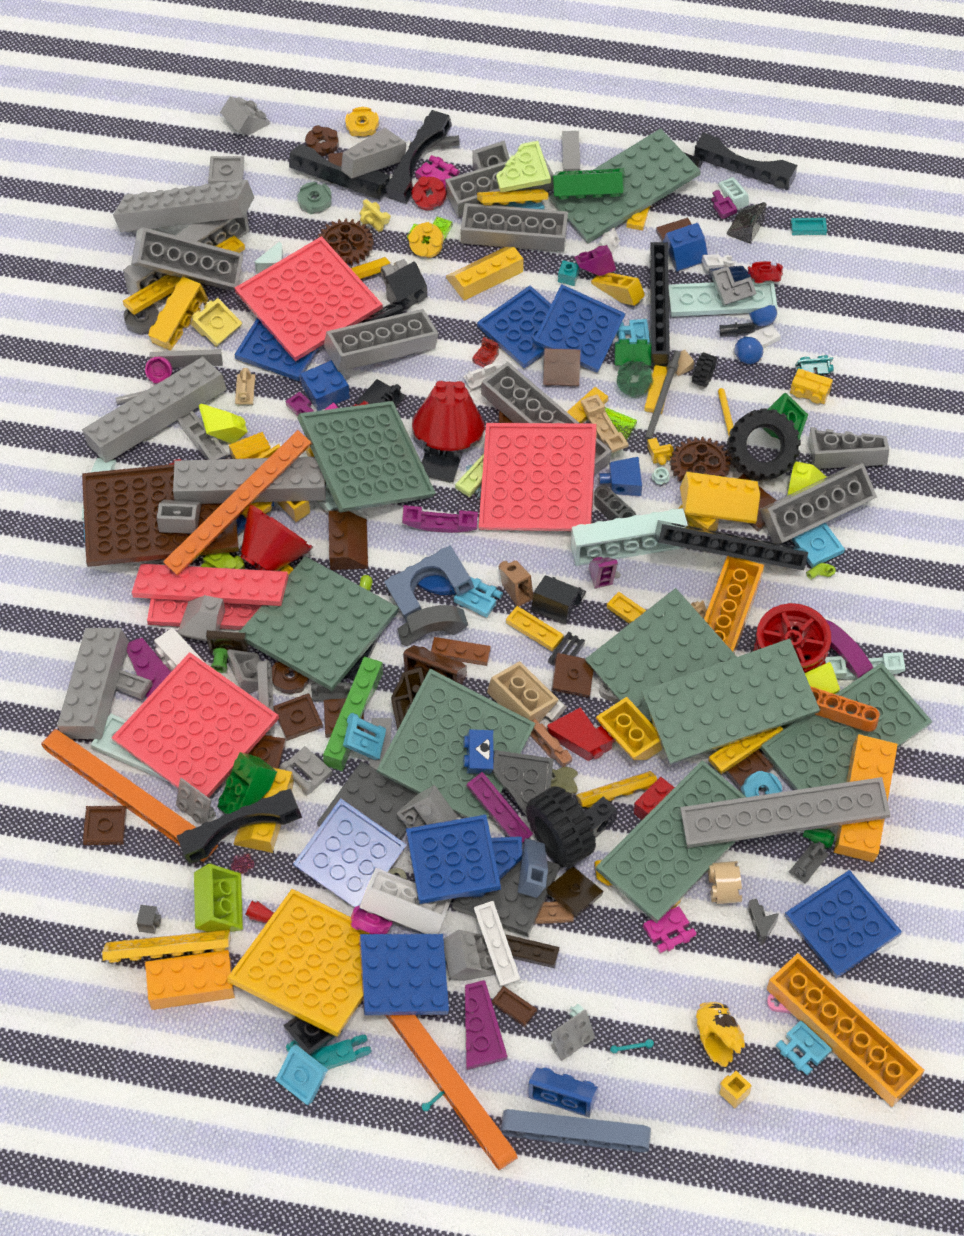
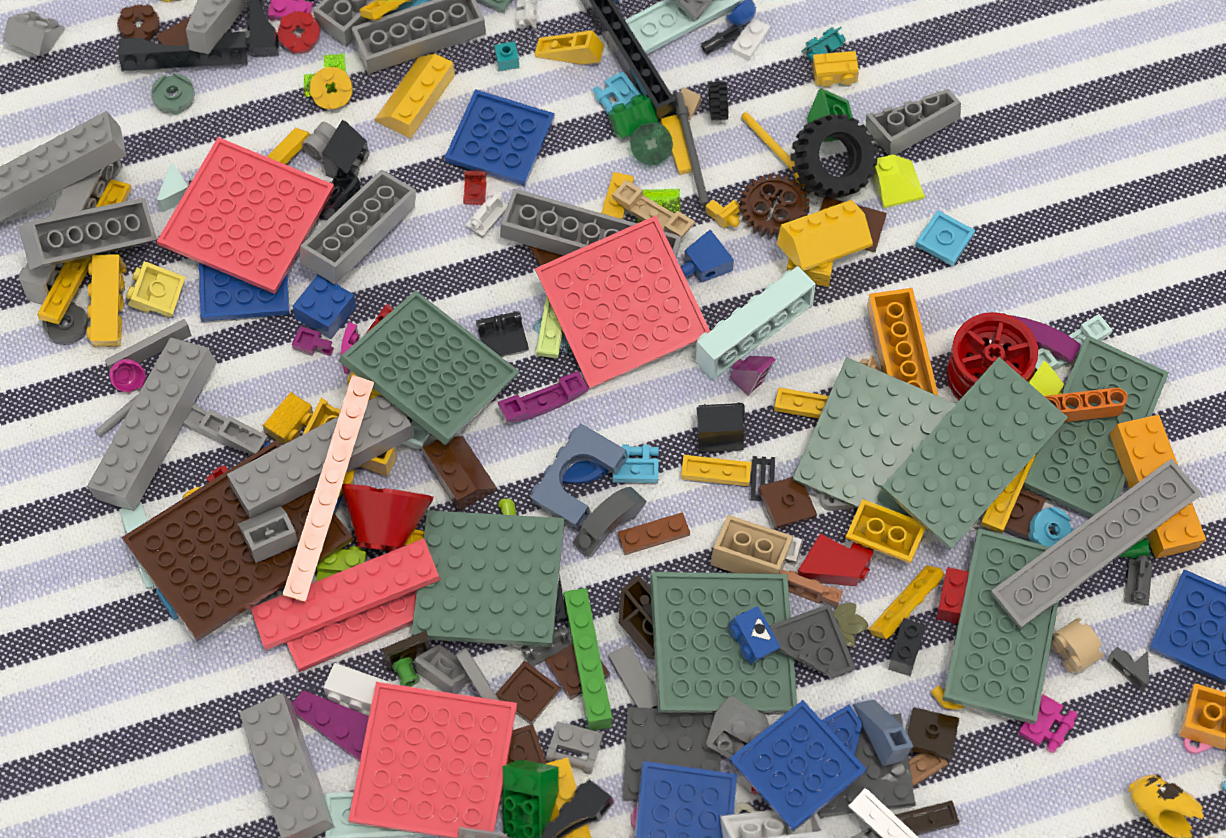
camera: 30 degrees left, 5 degrees up
(133, 684) = (329, 748): light grey tile -> none
(202, 615) = (359, 636): light grey slope -> none
(222, 424) = (242, 404): neon yellow slope -> none
(226, 169) = (52, 107): light grey plate -> none
(245, 387) = (235, 350): tan hinge -> none
(288, 685) = (492, 663): reddish brown plate -> none
(349, 240) = (243, 128): reddish brown gear -> none
(361, 741) = (620, 686): medium azure plate -> none
(371, 214) = (254, 86): light yellow hips -> none
(381, 392) = (391, 289): black hinge -> none
(419, 657) = (626, 565): reddish brown slope -> none
(448, 418) = (486, 282): red cone -> none
(498, 807) = (804, 685): magenta plate -> none
(513, 575) = (667, 428): medium nougat torso -> none
(561, 367) = (567, 166): plate -> none
(561, 826) = (886, 672): black tyre -> none
(580, 324) = (560, 114): blue plate -> none
(597, 261) = (531, 29): magenta slope -> none
(610, 502) = (711, 290): dark grey beam -> none
(660, 472) = (742, 234): light aqua plate -> none
(730, 545) = (867, 283): black brick -> none
(748, 350) = (748, 57): blue hair -> none
(818, 503) = (923, 194): light grey brick -> none
(821, 569) = (964, 263): lime arm -> none

